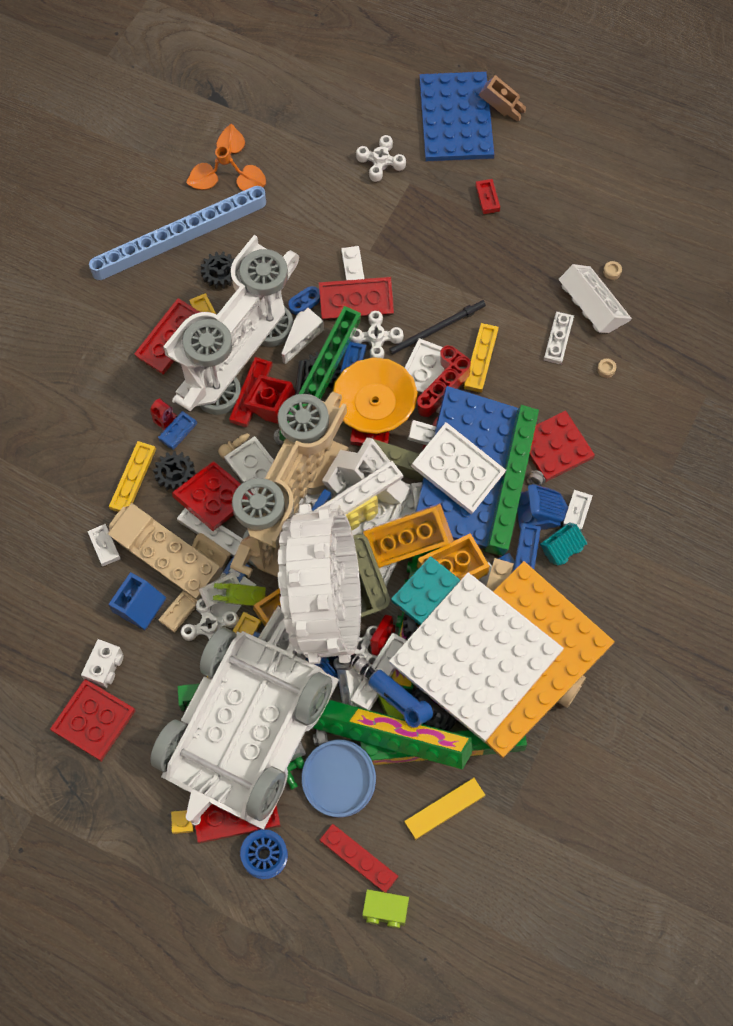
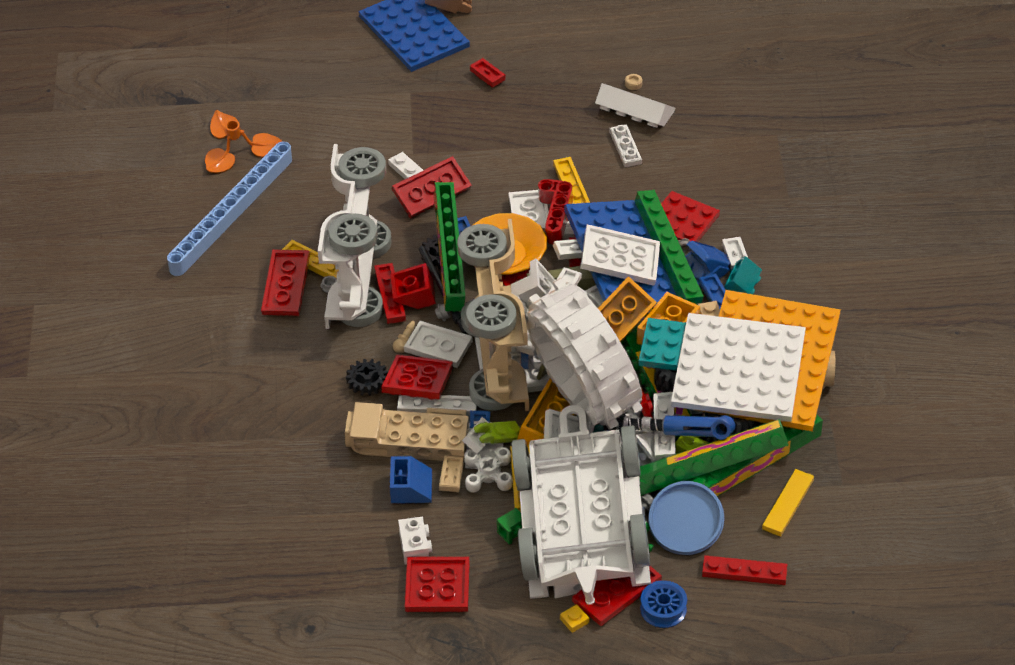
camera: 30 degrees left, 20 degrees down
(103, 545) = (345, 457): white plate -> none
(132, 476) = (331, 399): yellow plate -> none
(162, 413) = (325, 336): red leg -> none
(177, 430) = (345, 348): blue plate -> none
(217, 270) = (293, 218): black gear -> none
(303, 300) = (386, 208): blue plate -> none
(304, 330) = (403, 227): white slope -> none
(375, 319) = (470, 204): white gear -> none
(380, 158) = (372, 82): white gear -> none
(385, 908) = (794, 588): lime brick -> none
(466, 312) = (534, 158): black bar -> none
(606, 368) = (681, 149): tan tile -> none

